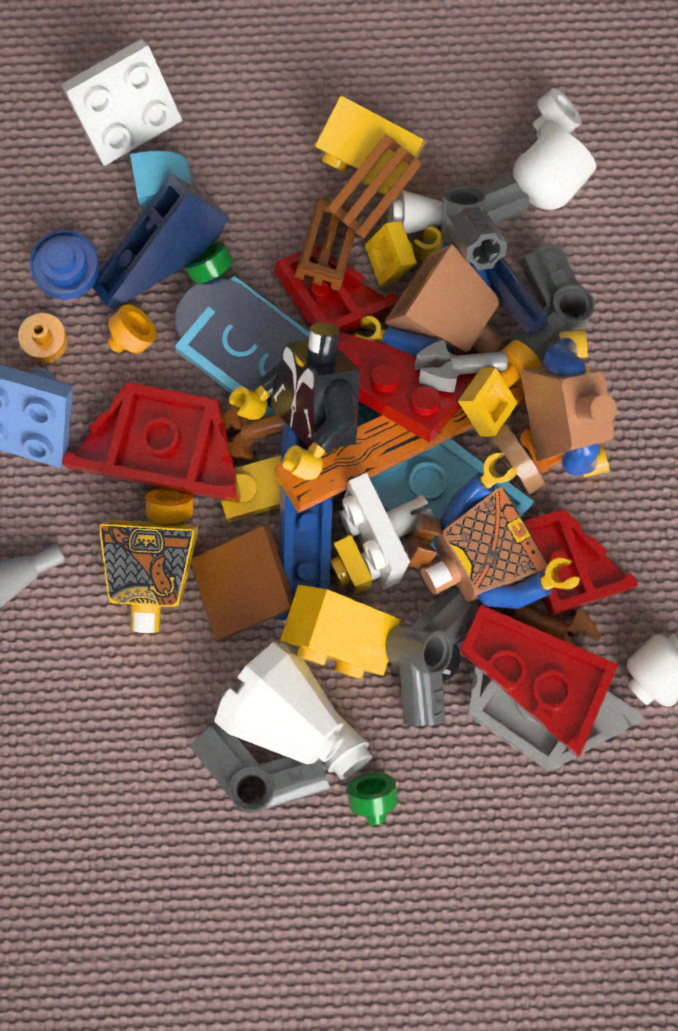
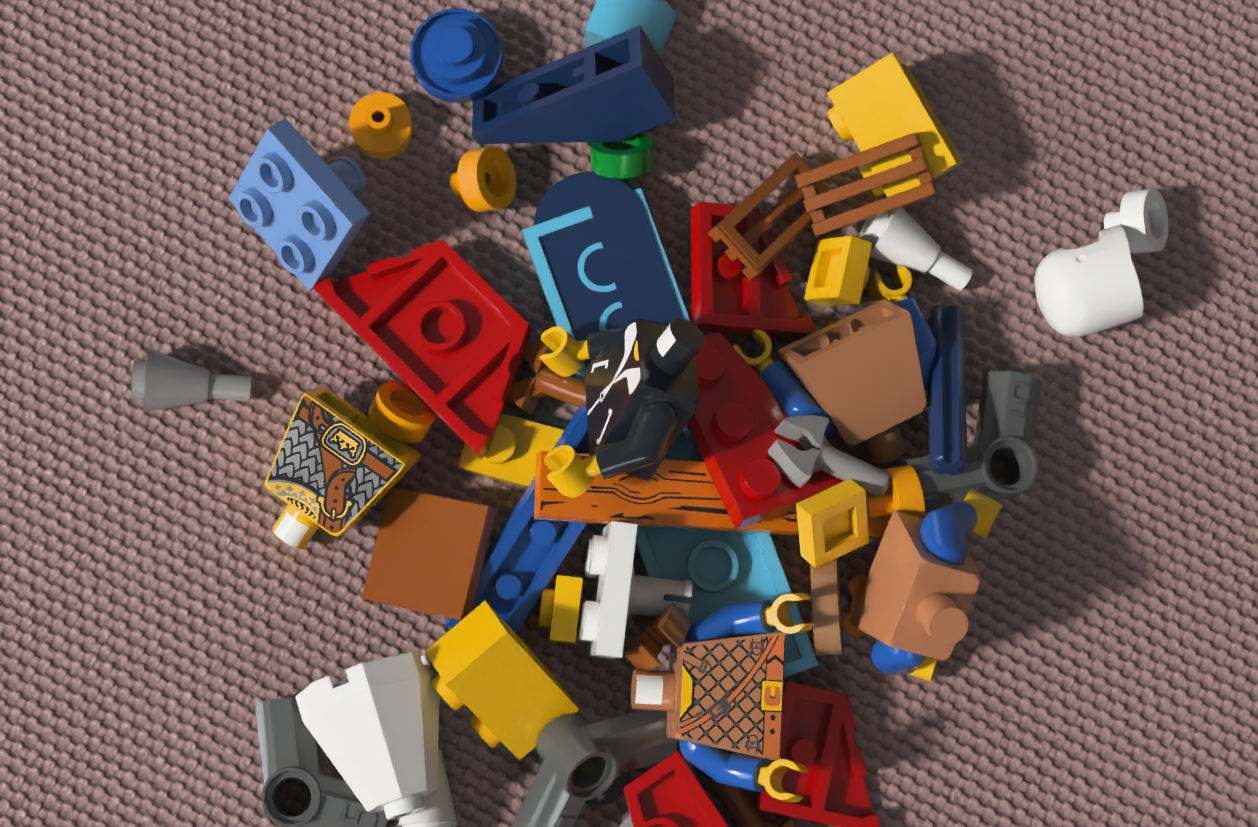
camera: 25 degrees right, 5 degrees up
(472, 217) = (953, 287): dark grey piece -> none

